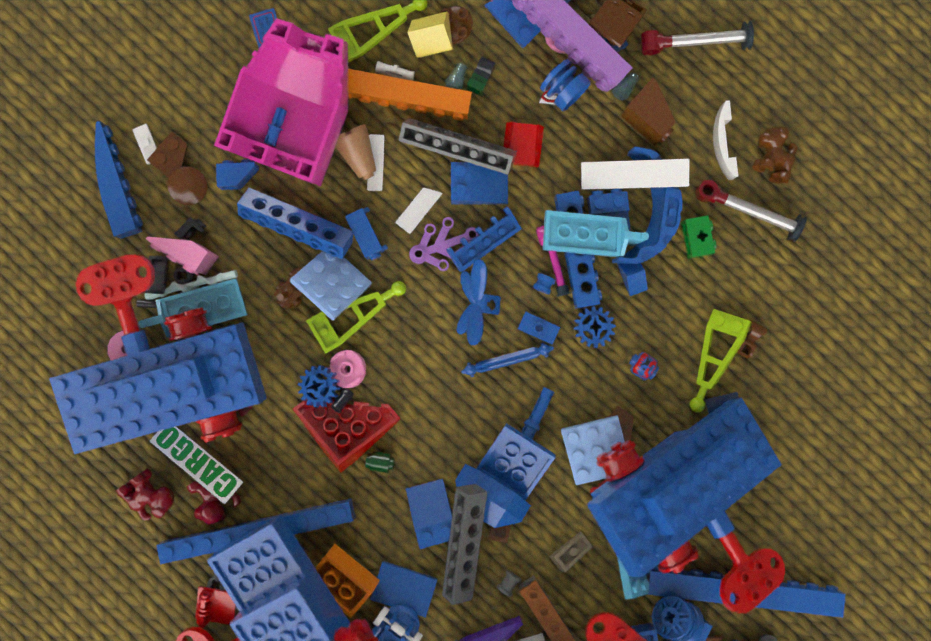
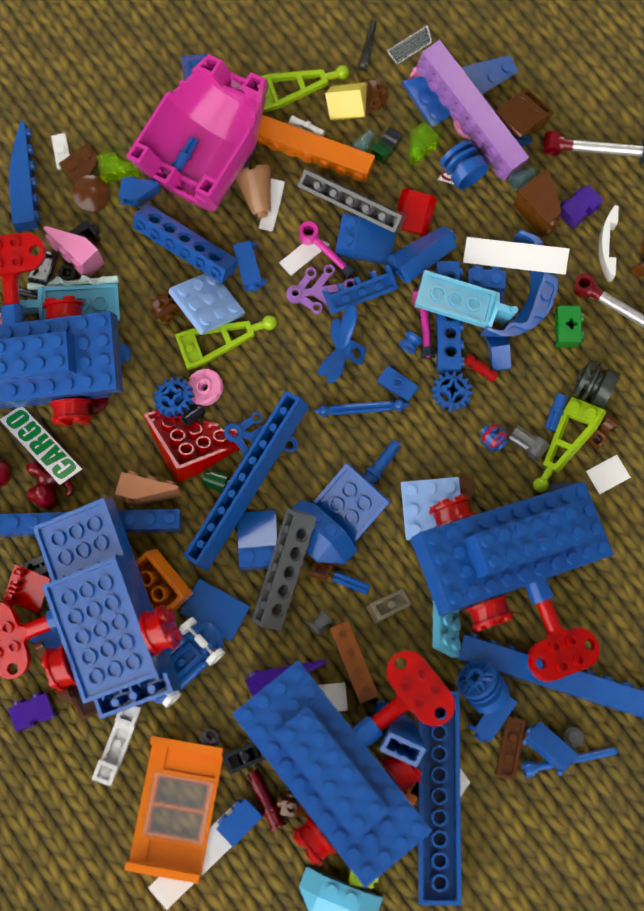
camera: 15 degrees right, 10 degrees down
(204, 155) = (114, 168): none -> clear neon green arch
(259, 349) = (125, 353): none -> blue plate
(303, 489) = (144, 491): none -> nougat slope
(409, 460) = (246, 480): none -> blue brick
(410, 411) = (250, 435): none -> blue plant
(466, 218) = (310, 226): none -> dark pink piece
(515, 66) = (421, 141): none -> clear neon green slope
(531, 537) = (351, 582): none -> blue axle
(539, 189) = (421, 254): none -> blue slope
(618, 296) = (480, 368): none -> red axle
(683, 367) = (532, 445): none -> flat silver piece
(693, 101) = (583, 203): none -> dark purple brick
(700, 328) = (556, 412): none -> blue axle
(737, 294) = (595, 383): none -> pearl dark grey wheel
(760, 379) = (608, 474): none -> white sticker

